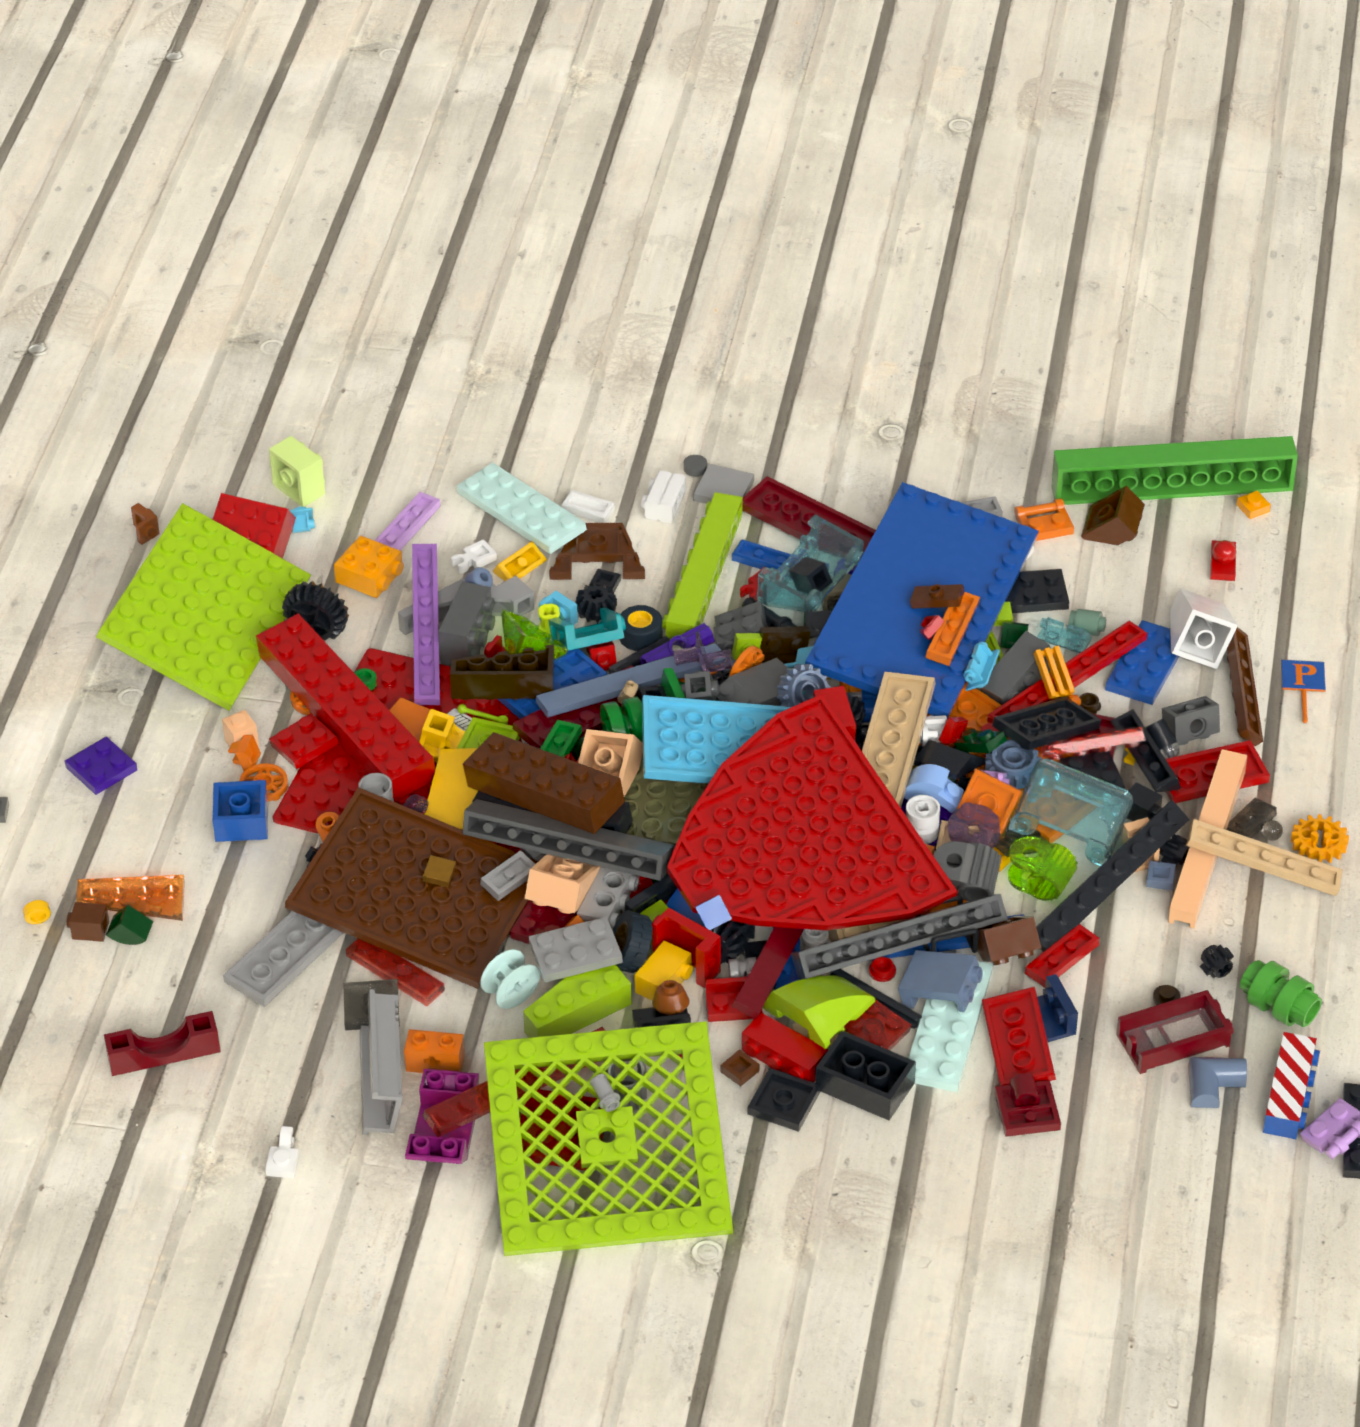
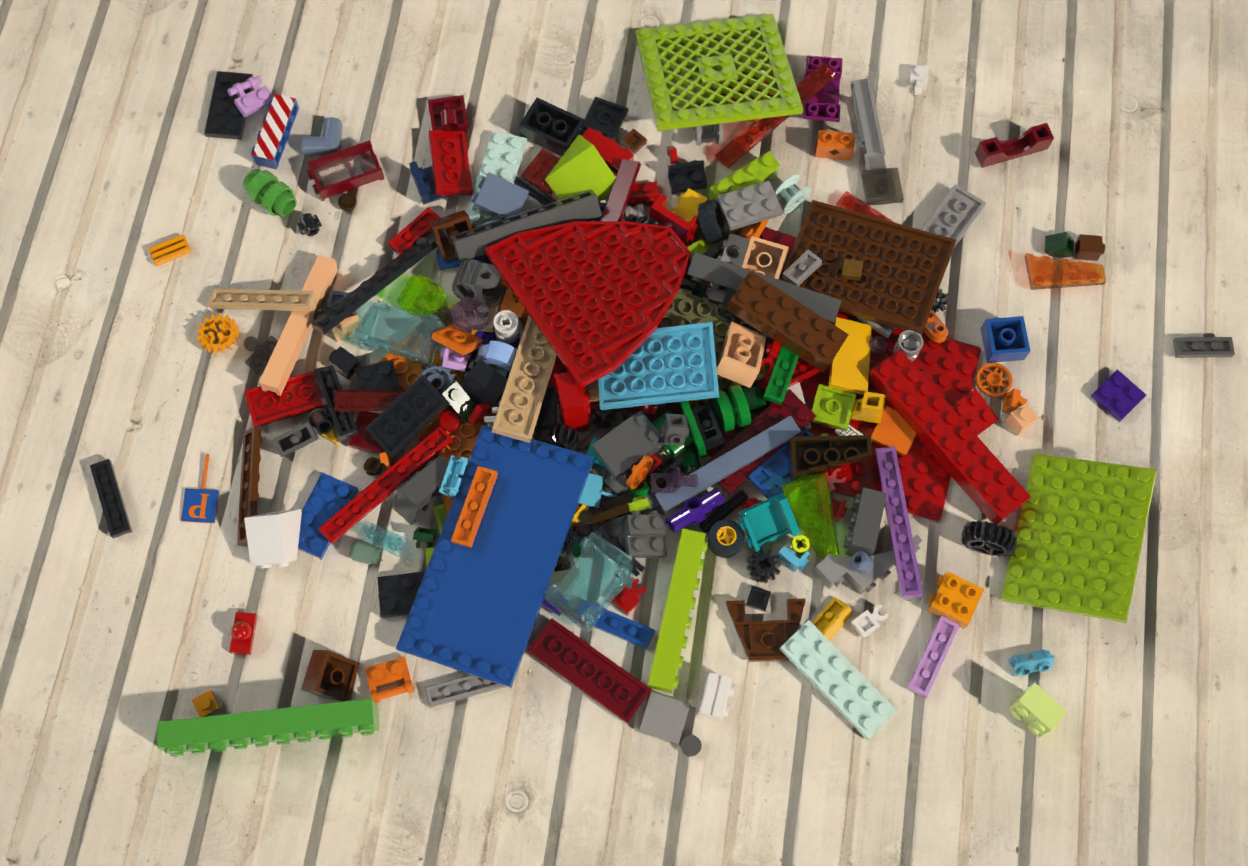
camera: 175 degrees right, 25 degrees up
(36, 912) = (1127, 255): yellow tile -> none
(145, 523) = (1151, 656): dark orange bracket -> none
(257, 521) = (1062, 636): red brick -> none
(368, 677) = (937, 476): green tile -> none
(588, 506) = (780, 691): white tile -> none
(608, 1098) = (717, 76): light grey pin -> none
(628, 691) = (729, 439): tan tile -> none
(670, 998) = (681, 180): dark orange cone -> none
(713, 912) = (656, 221): tile -> none
(795, 680) = (594, 430): sand blue gear -> none
(810, 575) = (589, 573): black brick -> none
(930, 625) = (492, 502): tile -> none
(937, 596) = (485, 534): reddish brown plate -> none
(1061, 666) = (394, 458): light orange tile -> none

